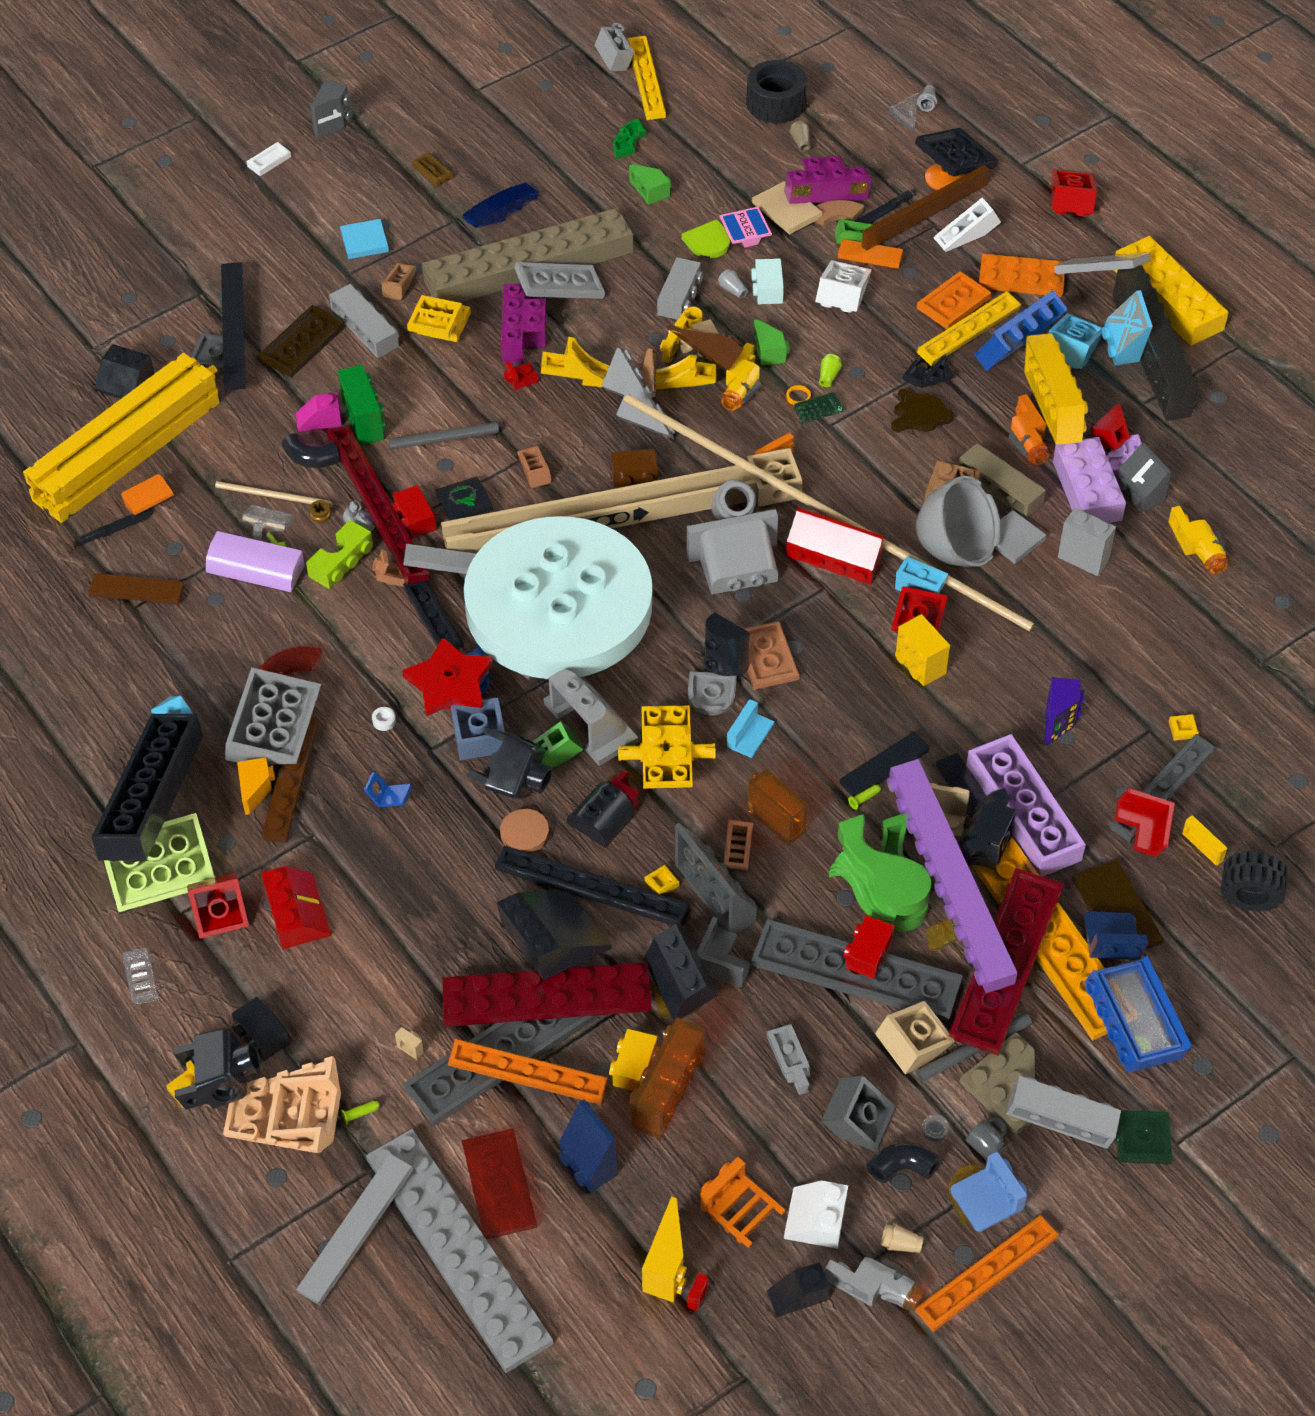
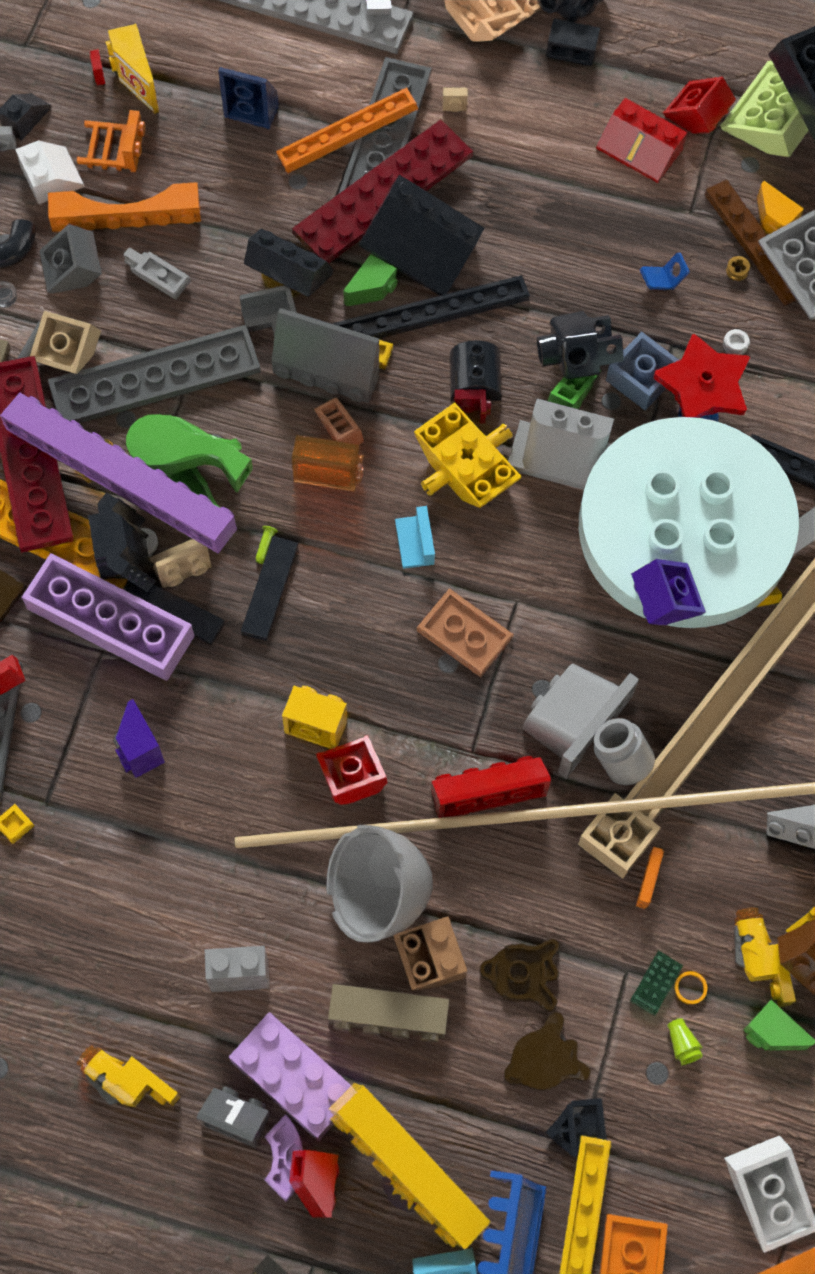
camera: 140 degrees right, 15 degrees up
(135, 961) = (702, 35): clear slope -> none
(322, 773) = (745, 267): none -> pearl gold bush
(360, 1111) = (452, 30): lime piece -> none
(499, 1184) = (303, 55): clear red tile -> none
(524, 830) = (525, 320): nougat tile -> none
(624, 931) = (370, 282): none -> bright green slope
(625, 543) = (667, 592): none -> dark purple slope
(634, 467) = (766, 754): reddish brown brick -> none
(634, 1056) = (274, 191): yellow brick -> none
(667, 1077) = (235, 183): clear orange brick -> none
(711, 692) = (483, 559): light grey tile -> none
(725, 646) = (502, 587): black brick -> none
(729, 1105) = (174, 205): none -> orange arch
(869, 946) = (151, 385): red brick -> none
(896, 457) = (522, 973): none -> dark brown tile
(920, 576) = (377, 808): medium azure panel -> none
(1018, 537) = (326, 951): light grey tile -> none
(1029, 431) = (409, 1103): orange plate -> none

